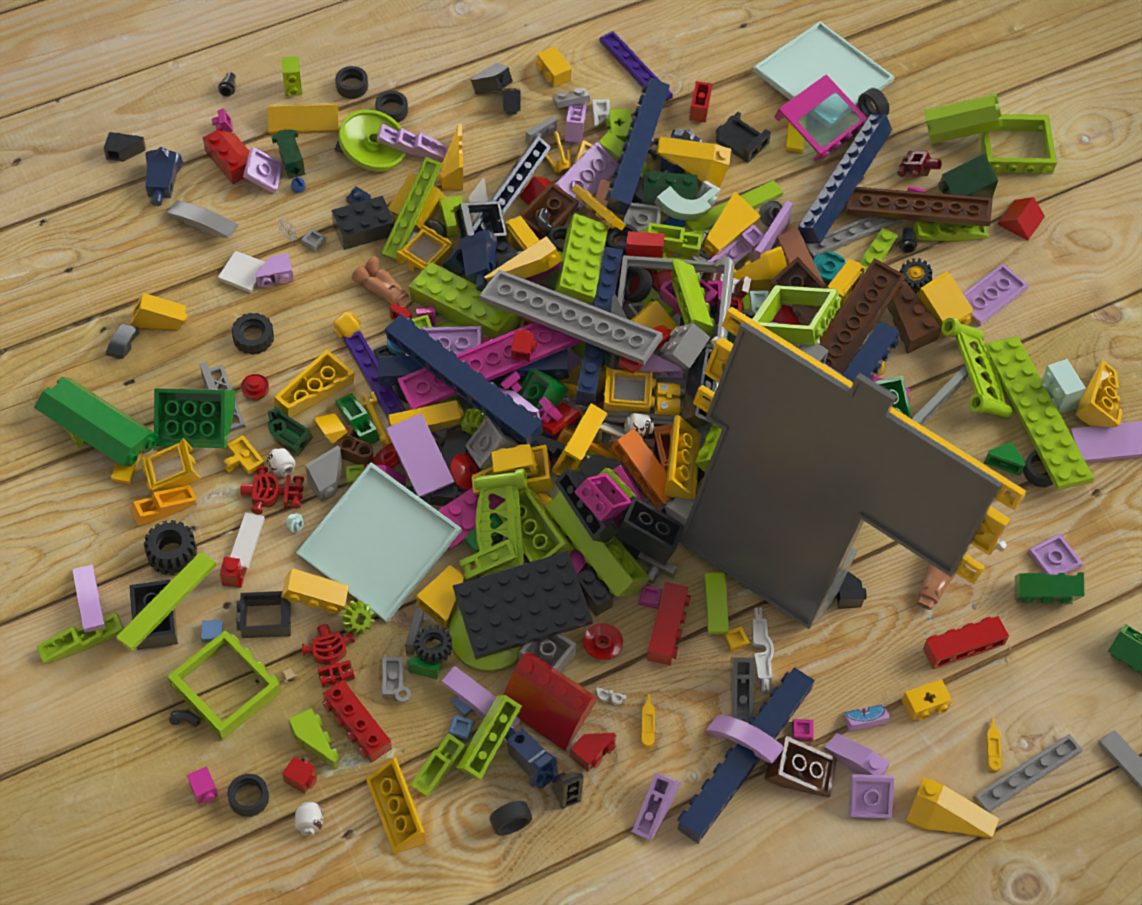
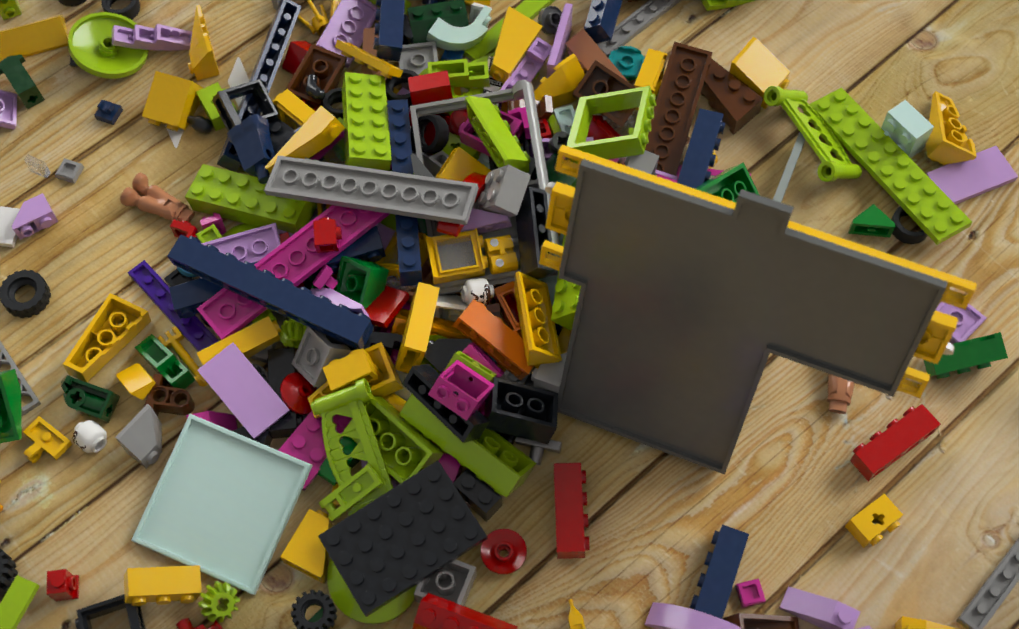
camera: 10 degrees left, 5 degrees up
(247, 538) = (71, 539): white tile -> none
(255, 387) = (40, 355): red plate -> none
(256, 490) = (78, 482): red piece -> none
(294, 522) = (121, 504): light aqua plate -> none
(295, 185) = (36, 116): blue hinge -> none
(346, 325) = (127, 257): yellow head -> none
(353, 473) = (174, 426): lime tile -> none
(362, 222) = (119, 138): black brick -> none
(387, 456) = (207, 400): red dish -> none
(412, 208) = (167, 110): lime tile -> none
(416, 626) = (289, 597): dark grey tile -> none
(425, 248) = (193, 150): yellow window -> none
(548, 411) = (374, 301): dark pink tile -> none
(616, 698) = (521, 614): white piece -> none
(650, 596) = (540, 482): dark pink tile -> none
(716, 603) = (615, 471): lime slope -> none
(736, 639) = (647, 505): yellow tile -> none
(742, 687) = (671, 562): dark grey slope -> none
(763, 659) = (684, 522): white piece -> none
(851, 593) = (758, 419): black slope -> none
(866, 717) = (814, 558): slope -> none
(879, 248) = (671, 30): lime plate -> none
(908, 242) = (699, 15): black cone -> none
(917, 274) = (722, 47): black wheel -> none
(993, 746) = (960, 555): yellow piece -> none
(994, 293) = (803, 47): lavender tile -> none

